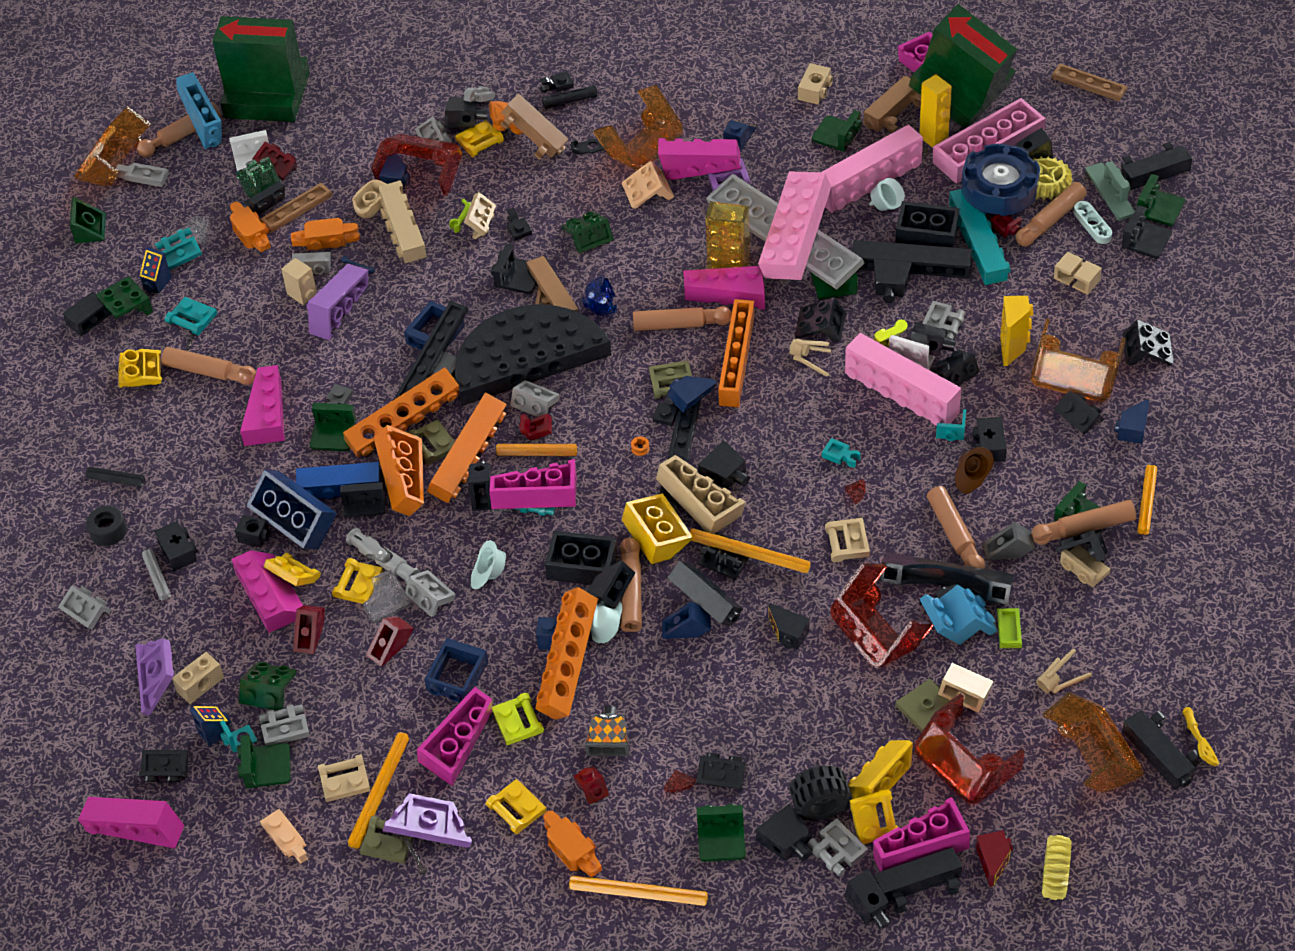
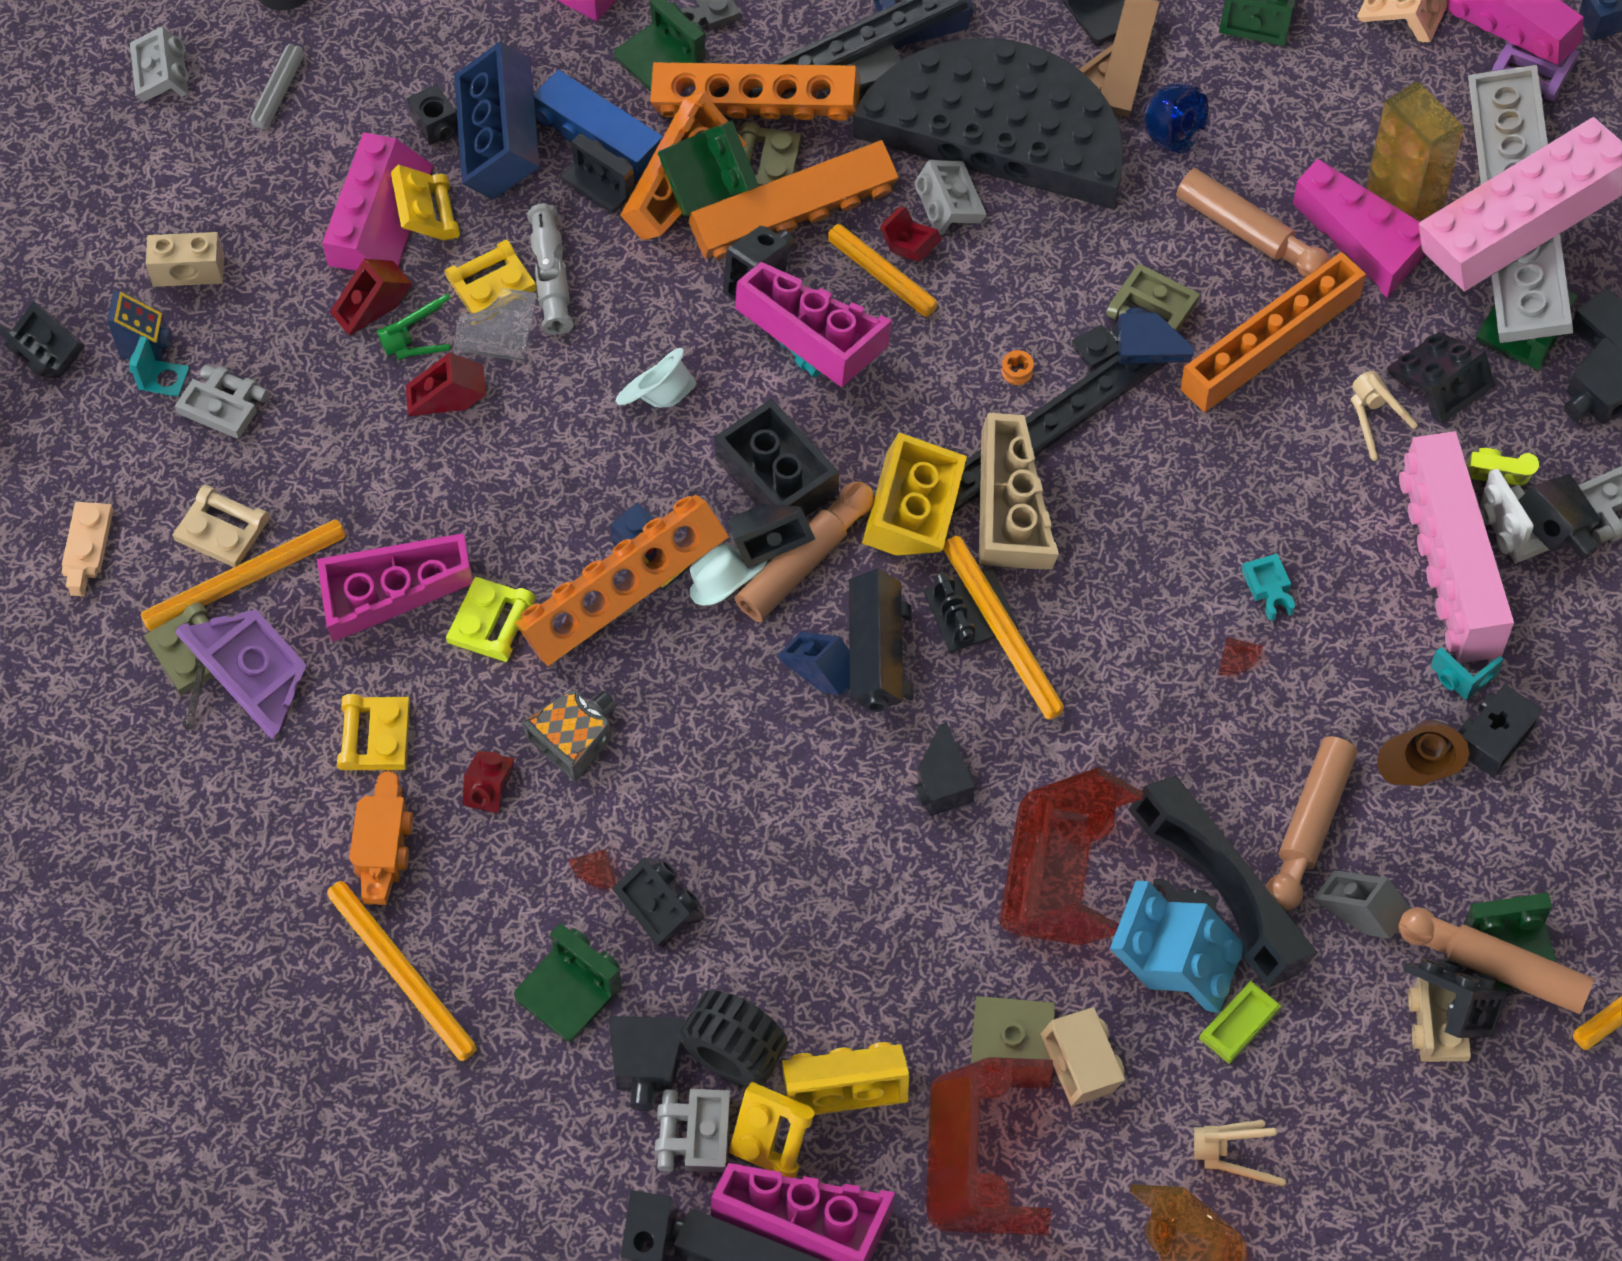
camera: 40 degrees right, 10 degrees up
(154, 672) = (143, 214): medium lavender wing -> none
(176, 546) = (330, 65): black brick -> none
(263, 764) = (147, 429): dark green bracket -> none
(265, 685) = (249, 326): dark green bracket -> none
(340, 635) = (396, 336): none -> green plant
(421, 455) = (707, 168): none -> dark green bracket
(428, 592) = (556, 360): light grey bracket -> none
(460, 652) = (470, 469): dark blue window -> none
(724, 466) = (1091, 482): black torso -> none
(854, 538) = (1159, 724): tan plate -> none
(957, 367) = (1560, 588): black bracket -> none

